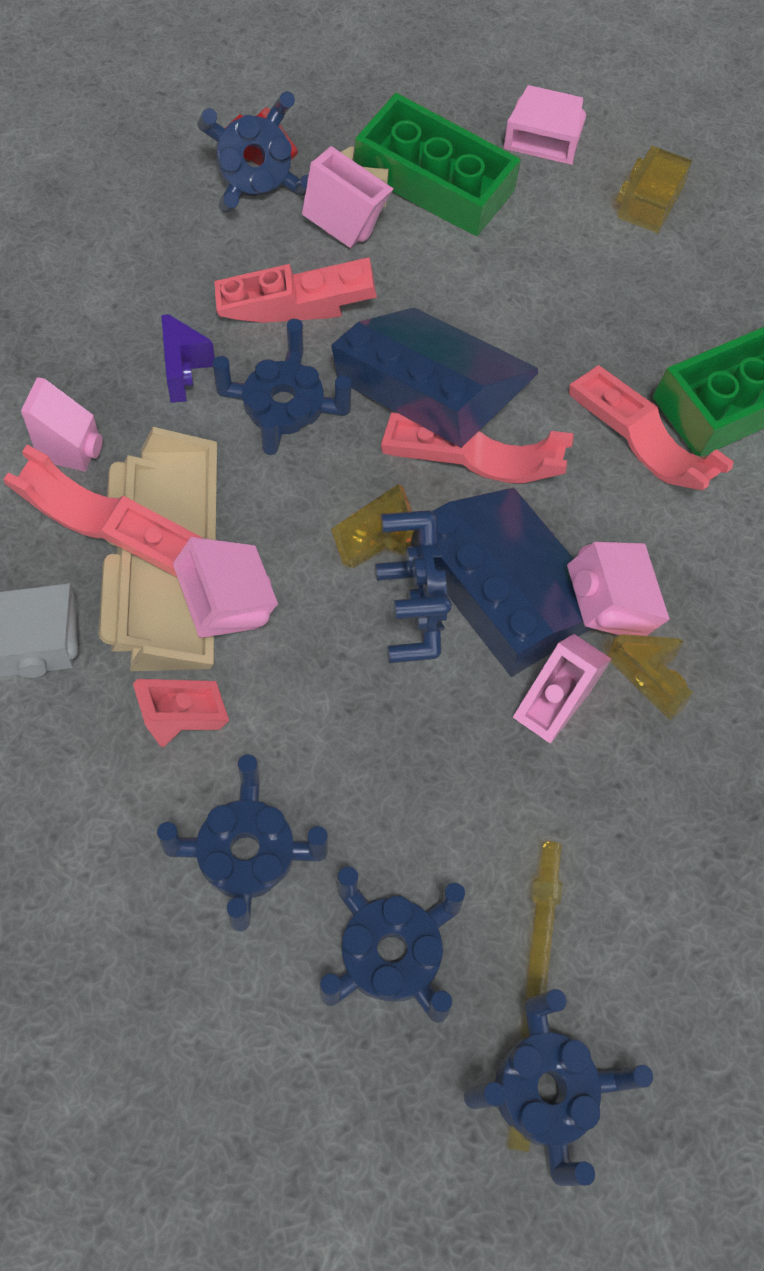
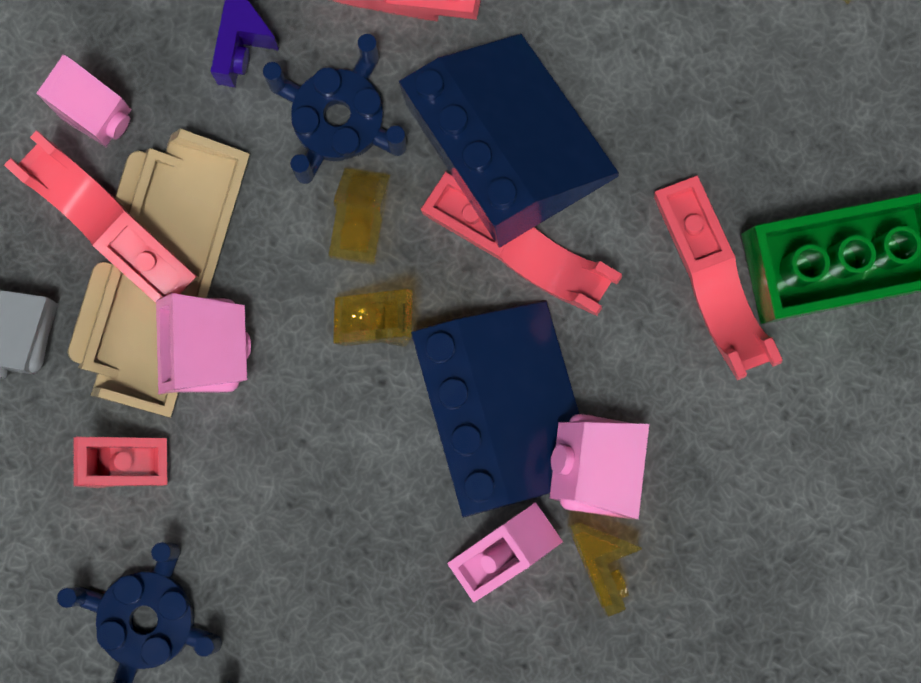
camera: 25 degrees right, 20 degrees up
(330, 466) = (358, 216): none -> clear yellow slope
(429, 599) = (395, 410): dark blue plate -> none

